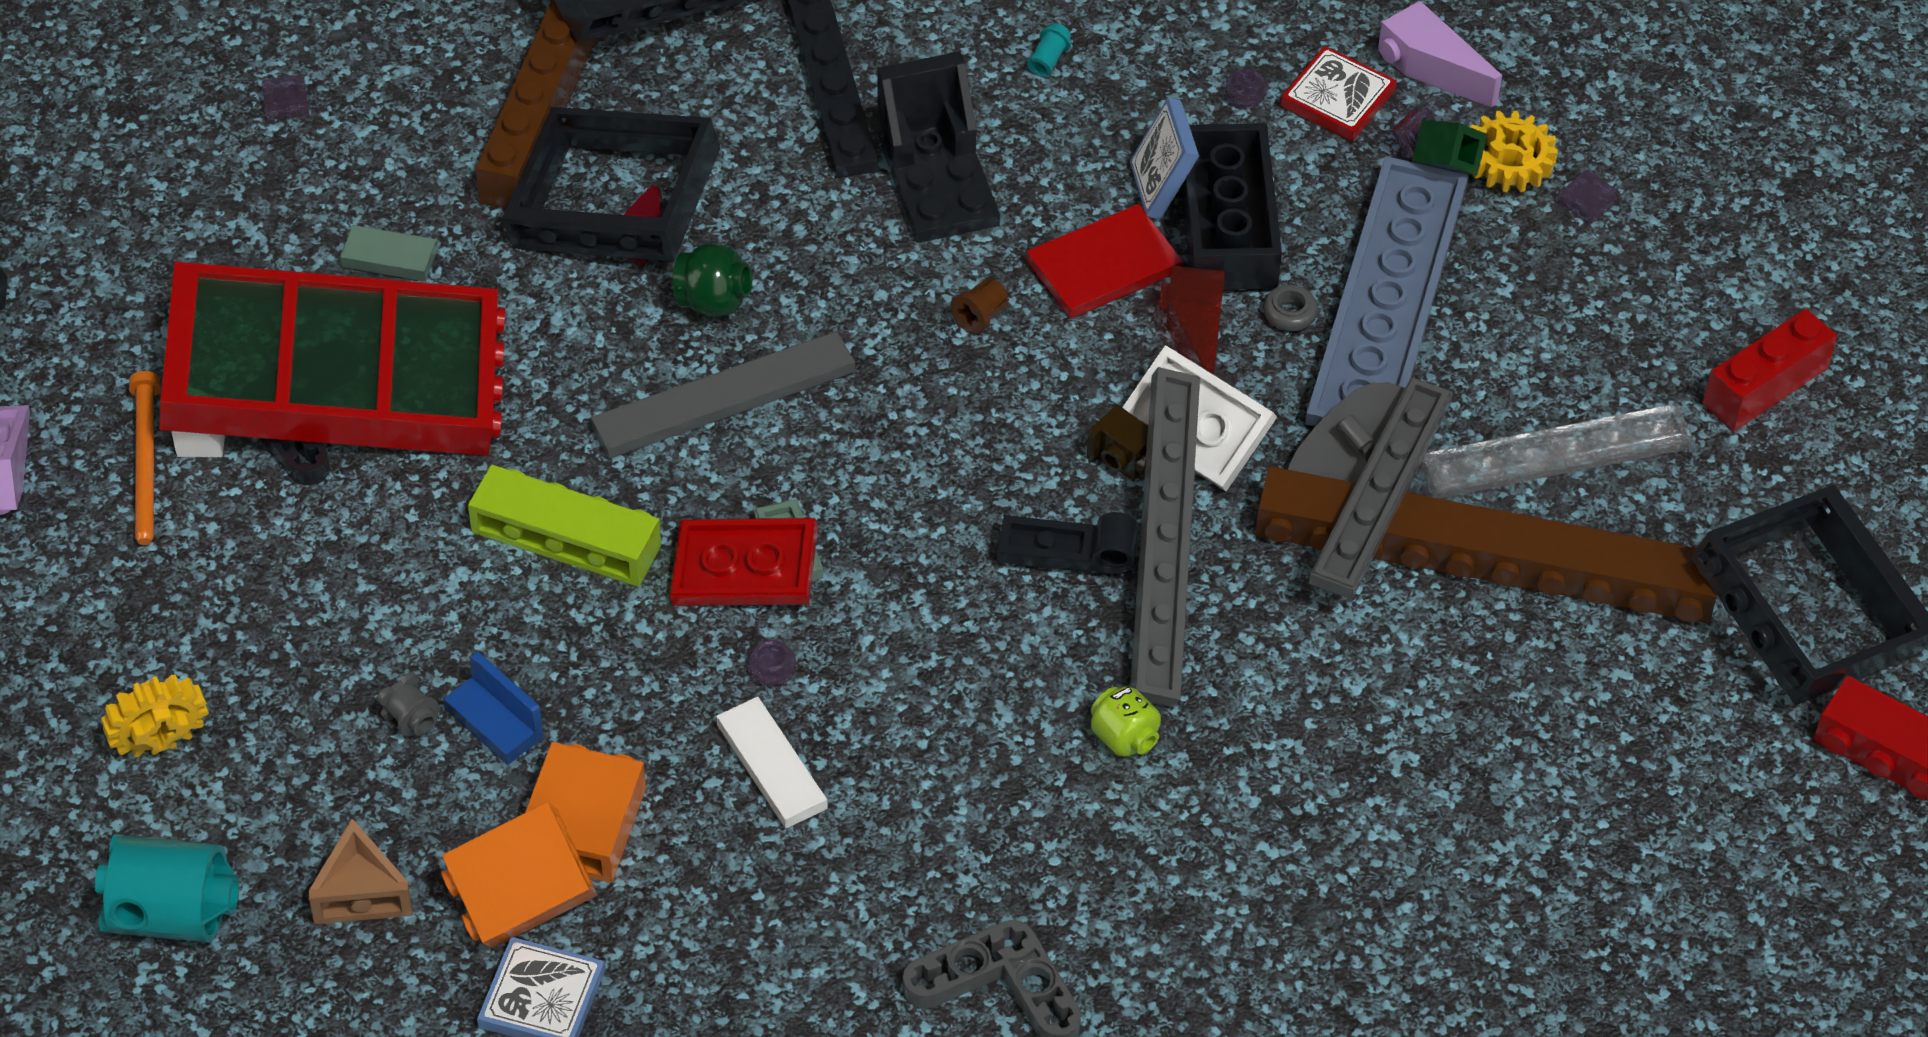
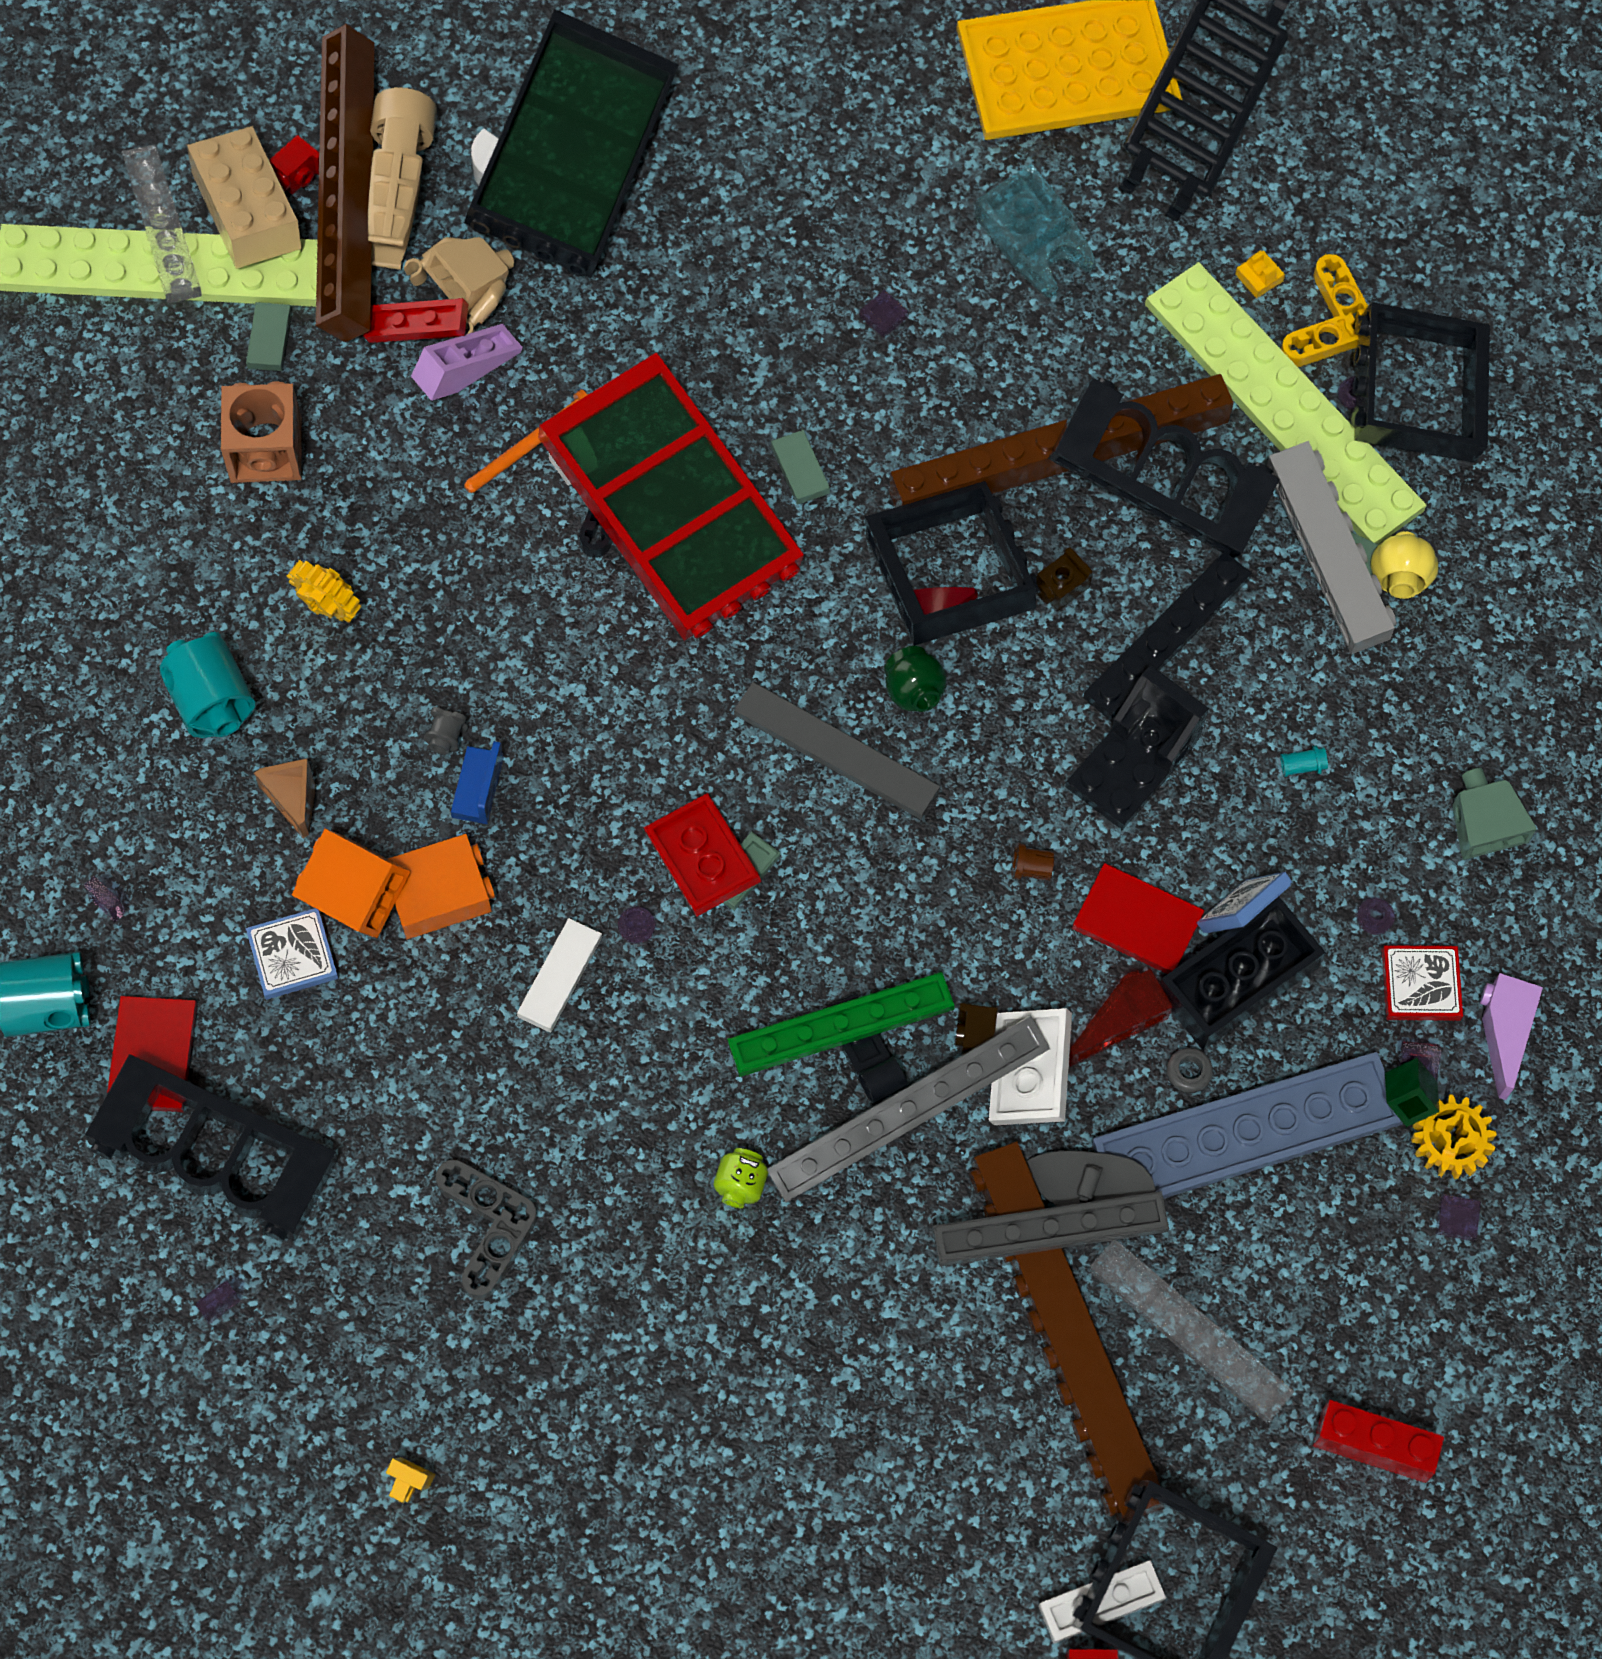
camera: 55 degrees right, 15 degrees up
(565, 525) = (652, 726): lime brick -> none
(708, 101) = (1076, 580): none -> dark brown brick
(1028, 544) = (840, 1024): none -> green tile
(1773, 708) = (1126, 1594): none -> white plate

